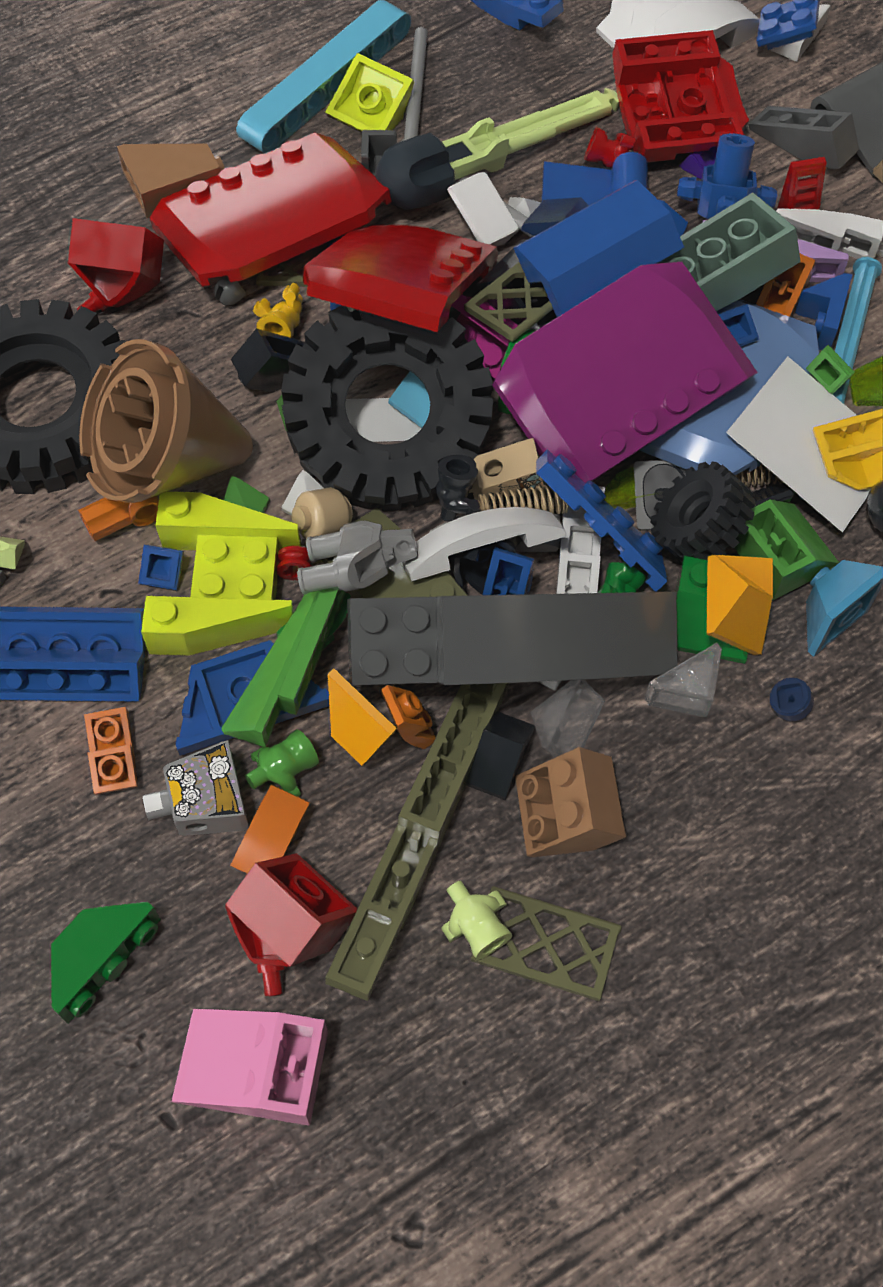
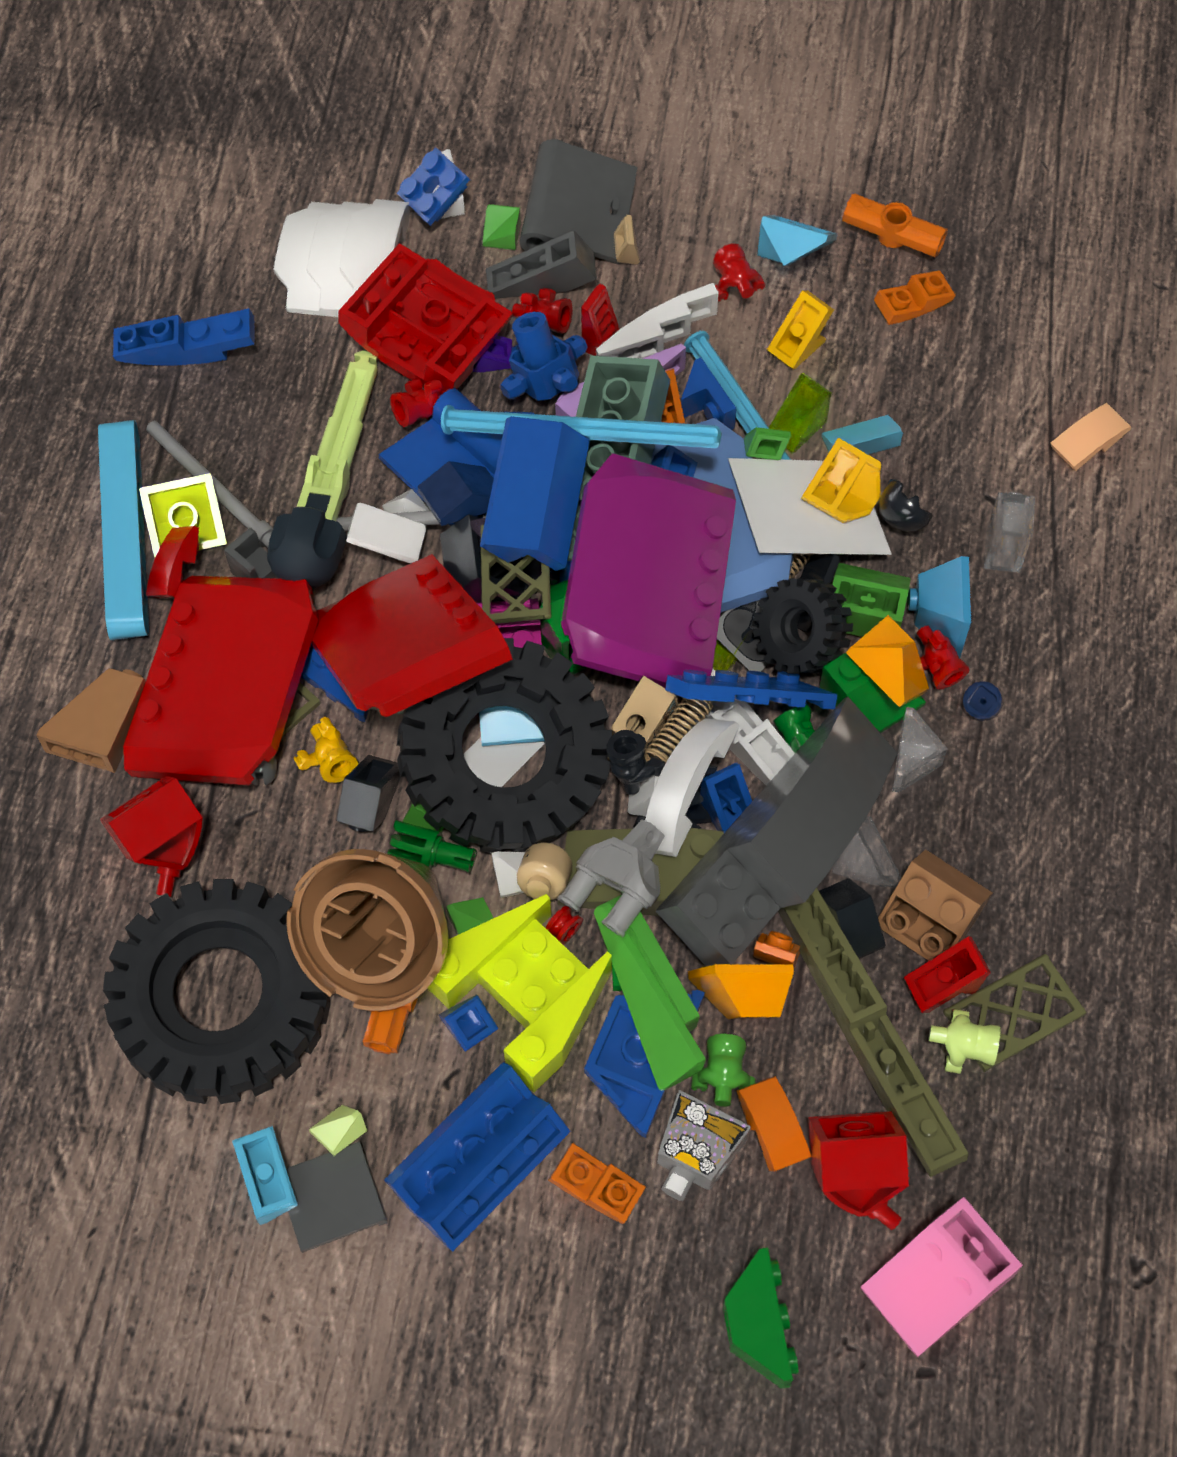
camera: 45 degrees left, 0 degrees up
(269, 431) = (429, 851): none -> green arm
(339, 113) = (166, 572): none -> red slope
(516, 860) = (947, 975): none -> red slope
(700, 246) = (592, 428): none -> medium azure axle
(772, 161) = (557, 312): none -> red piece
(791, 639) = (941, 658): none -> red piece
(810, 84) = (501, 227): none -> bright green slope

